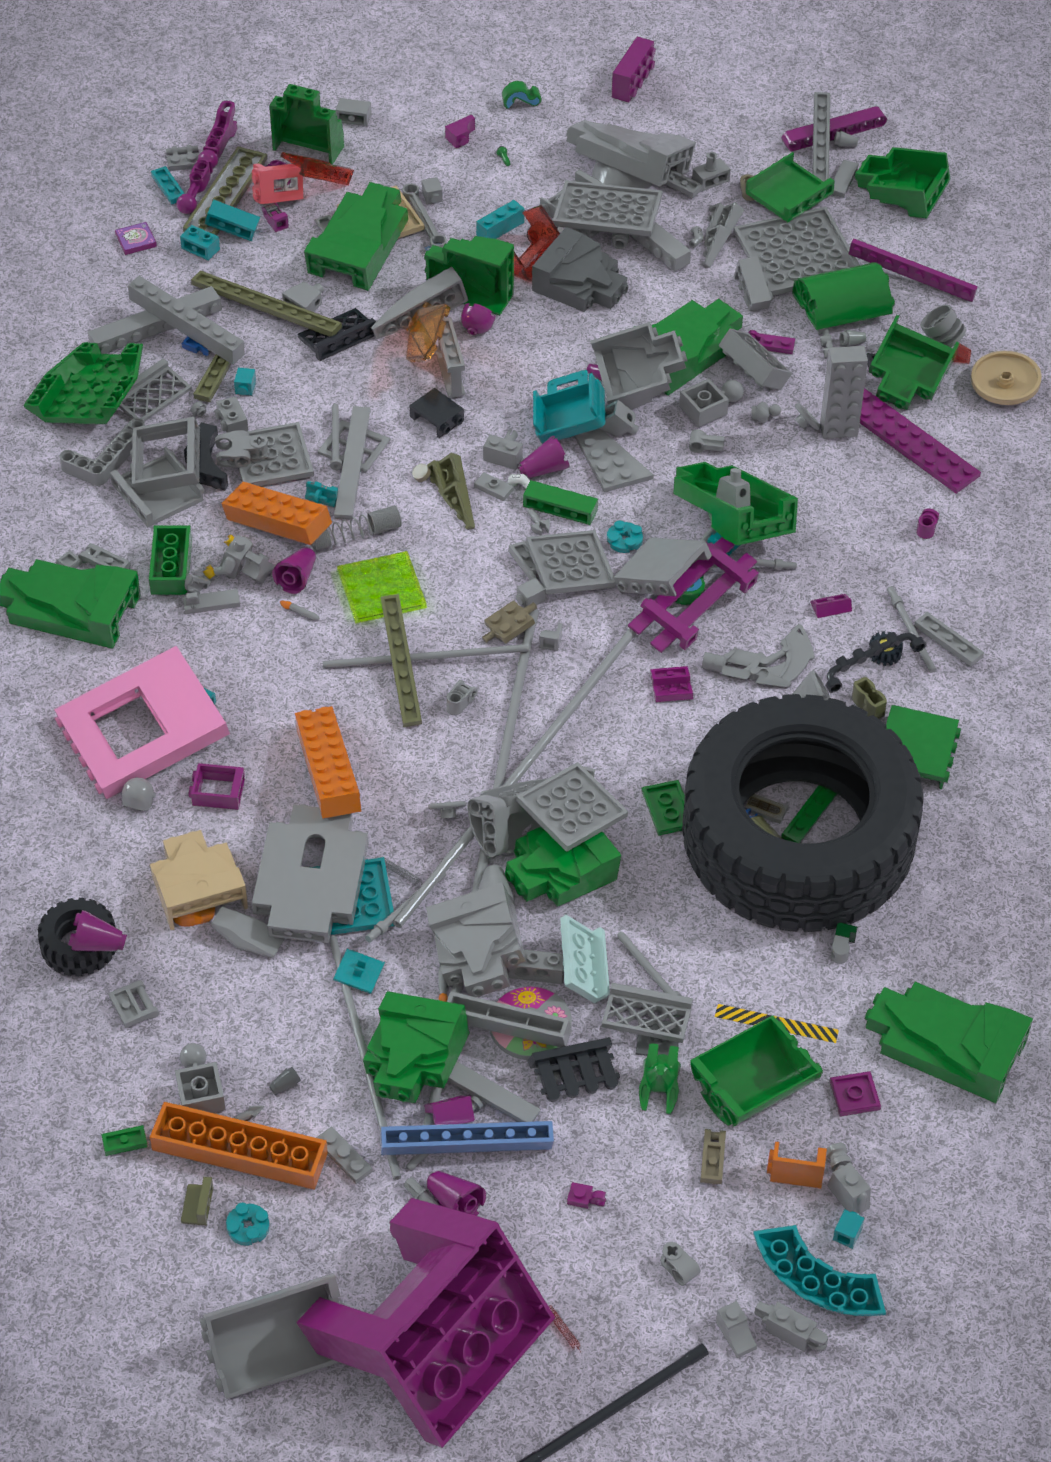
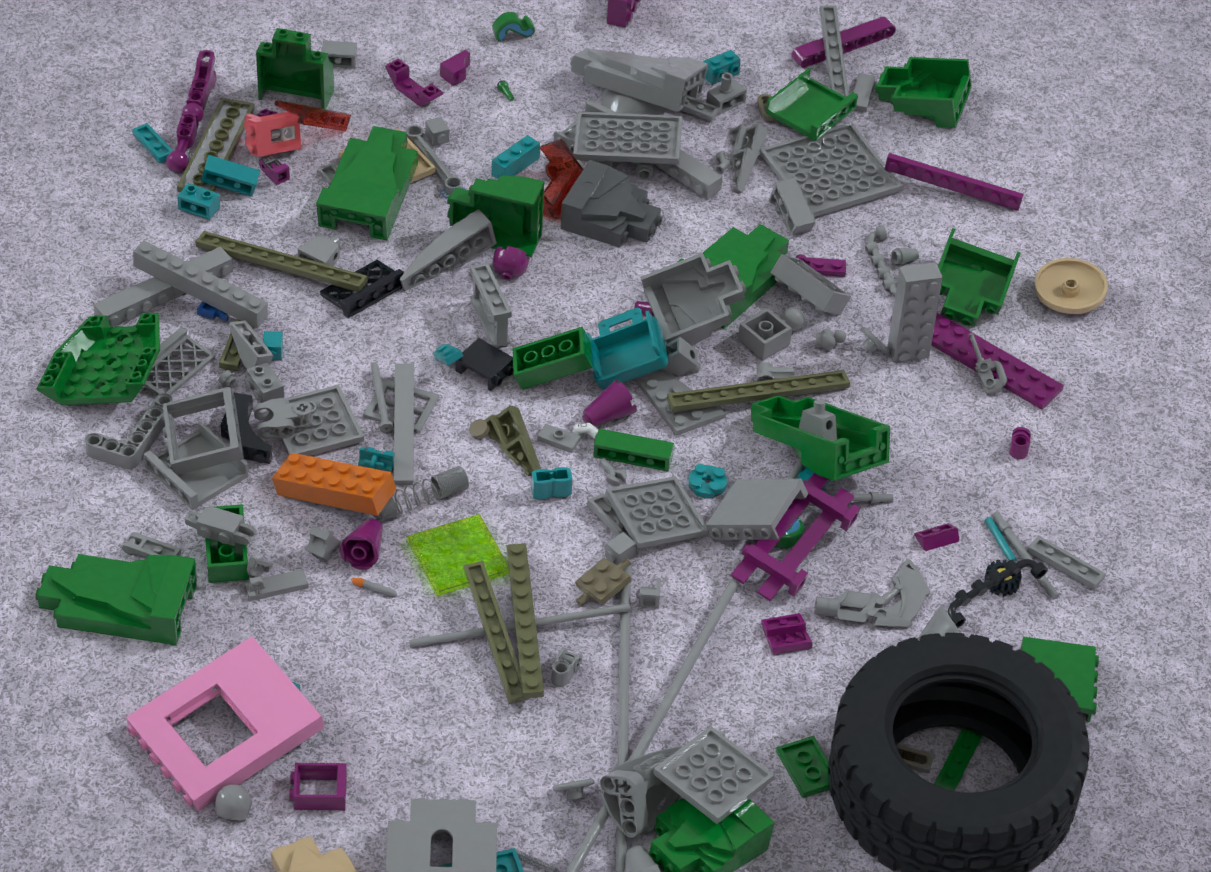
camera: 10 degrees left, 5 degrees down
(70, 560) = (113, 551): light grey tile -> none
(135, 238) = (126, 201): tile -> none
(165, 543) = (220, 526): none -> light grey hinge
(183, 161) = (163, 117): light grey plate -> none
(222, 379) = (249, 345): none -> light grey slope
(233, 558) = (295, 536): light grey torso -> none
(327, 762) = (439, 749): orange piece -> none
(403, 400) = (447, 354): none -> teal plate
(407, 137) = (401, 79): none -> magenta slope
(424, 330) = (461, 279): clear orange windscreen -> none
(429, 652) = (525, 621): none -> olive plate
(477, 527) = (551, 483): none -> teal brick
(497, 411) = (552, 358): none -> green brick
(503, 450) = (563, 399): light grey brick -> none
(687, 455) = (757, 390): none -> olive plate
(713, 142) = (723, 63): none -> teal brick
(844, 295) = (890, 212): green cylinder -> none
(845, 140) = (856, 52): light grey cone -> none
(868, 698) = (995, 628): olive brick -> none
(891, 614) = (1000, 539): none -> teal bar
(907, 450) = (985, 370): none -> light grey piece
(943, 325) = (998, 236): light grey wheel -> none
(963, 354) = (1022, 264): clear red slope -> none

